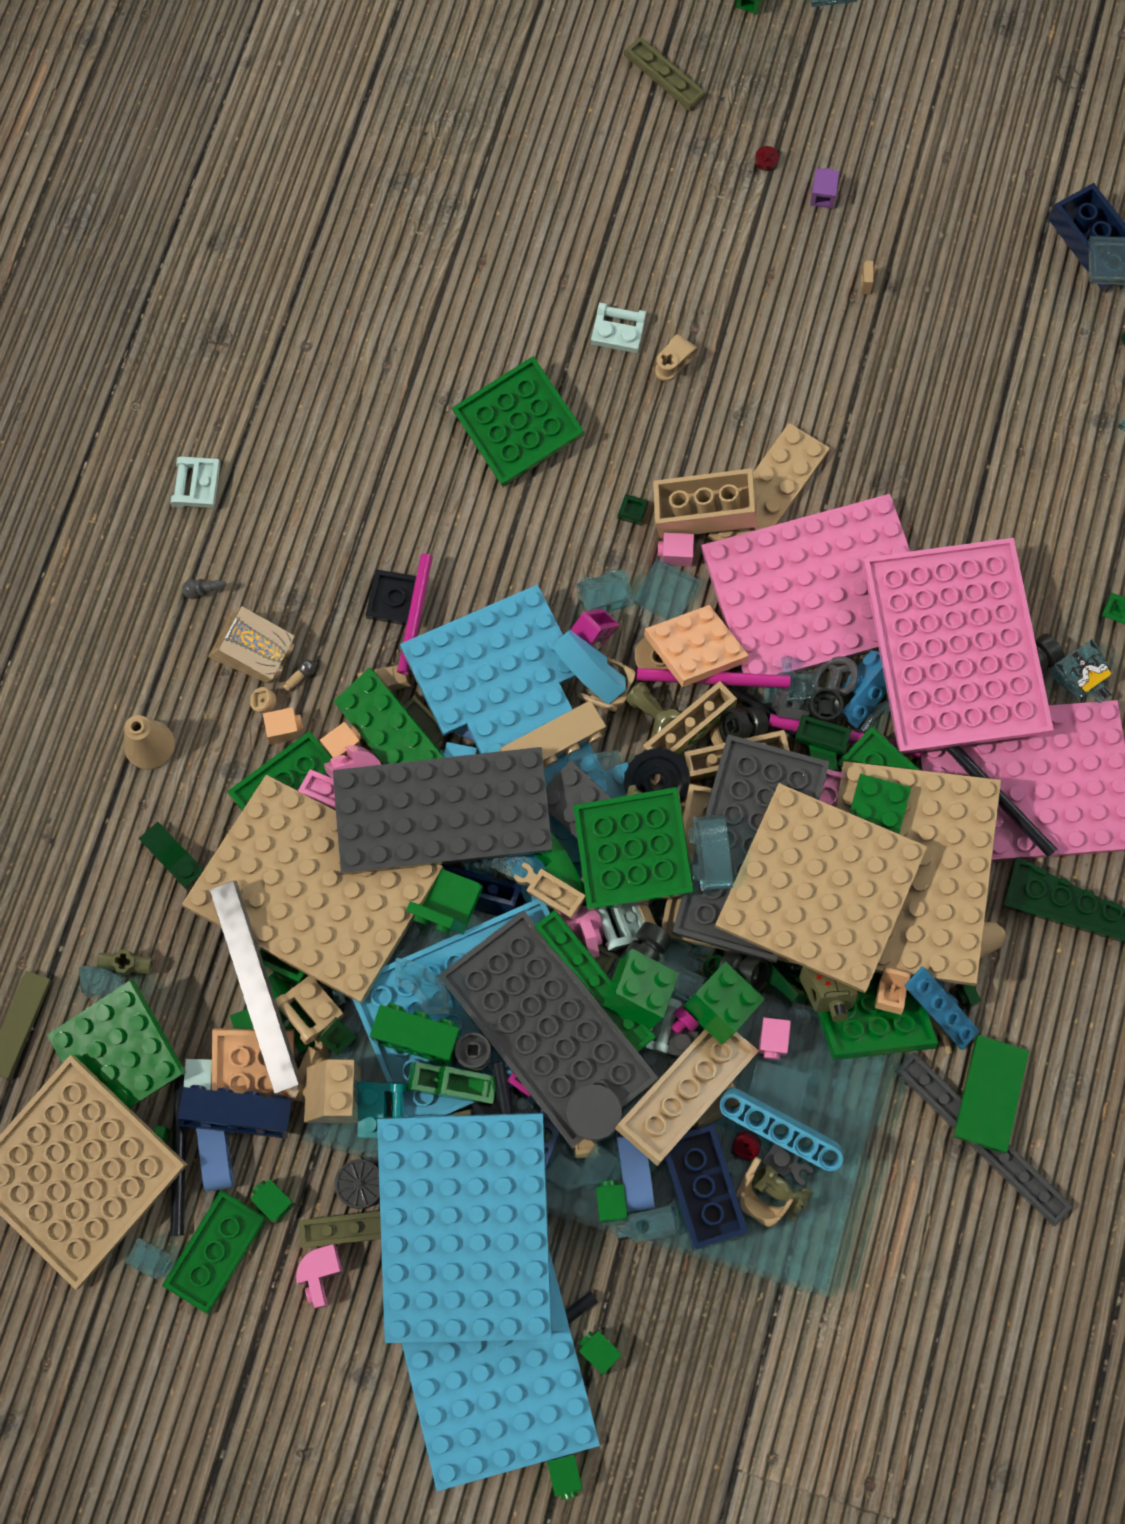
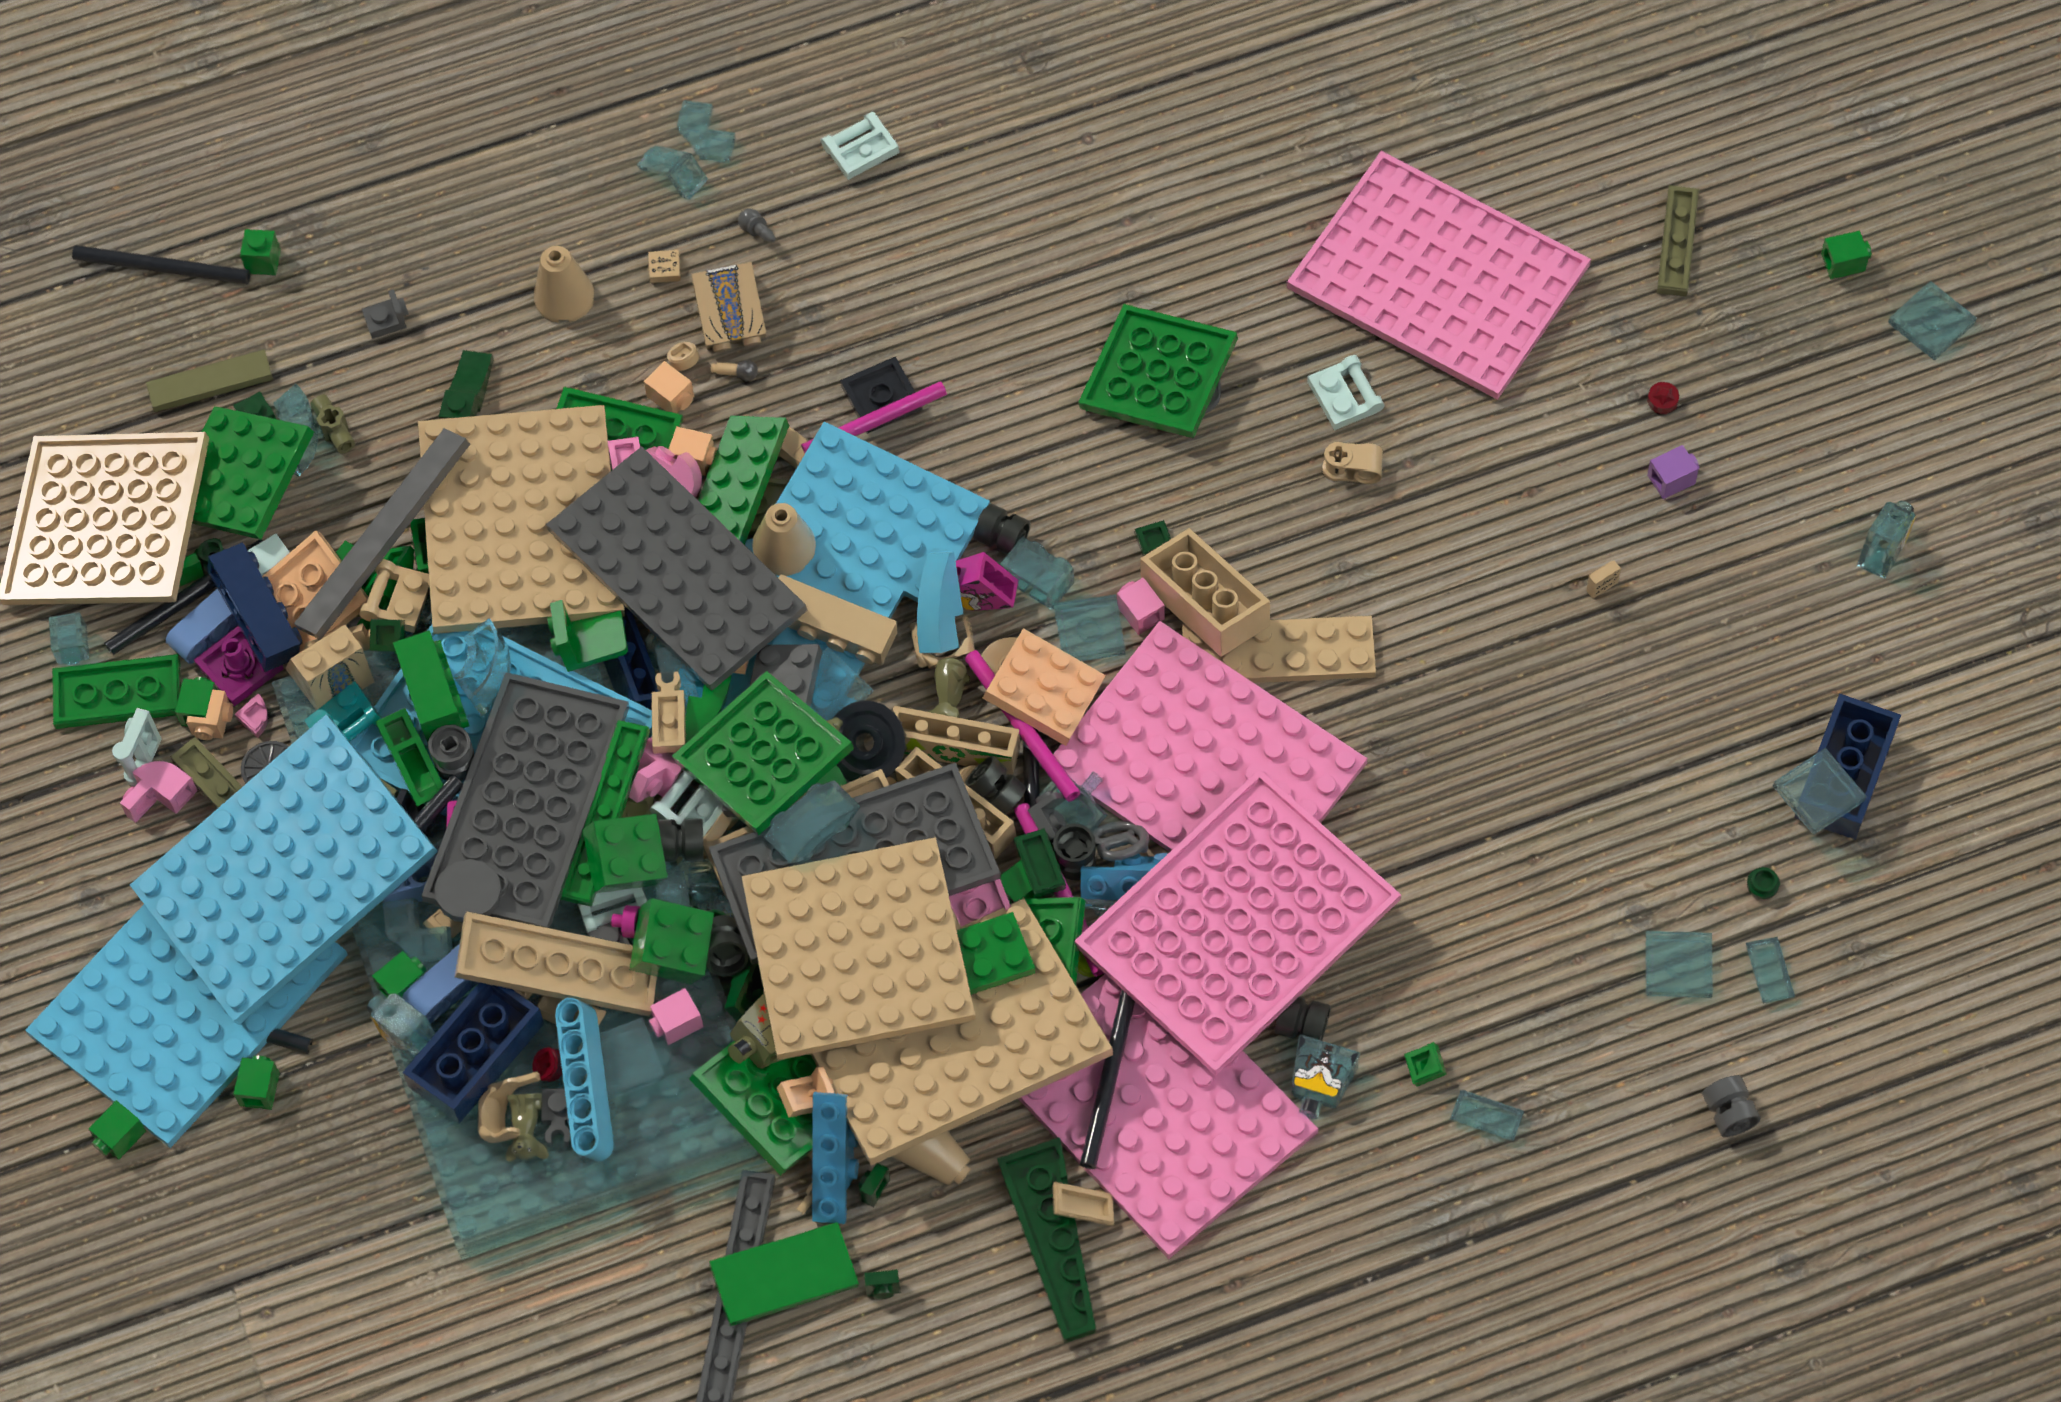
camera: 55 degrees right, 10 degrees down
(67, 871) = (386, 316): none -> dark grey bracket
(67, 1008) = (255, 405): none -> dark green plate
(111, 574) = (707, 143): none -> clear light blue tile
(112, 605) = (678, 166): none -> clear light blue bracket
(153, 1109) = (207, 548): none -> dark green plate
(182, 665) = (664, 266): none -> tan tile
(262, 1152) = (233, 656): none -> magenta plate
(275, 1261) = (139, 740): none -> light aqua plate
(292, 1190) = (218, 714): none -> light nougat bracket
(309, 1168) = (254, 715): none -> bright pink tile
(472, 730) = (784, 541): none -> tan cone
(560, 592) = (998, 528): none -> pearl dark grey wheel
(579, 217) = (1439, 274): none -> bright pink plate
(963, 107) = (1893, 526): none -> clear light blue torso
(1042, 1036) = (882, 1284): none -> dark green plate
(1075, 875) = (1083, 1204): none -> tan tile

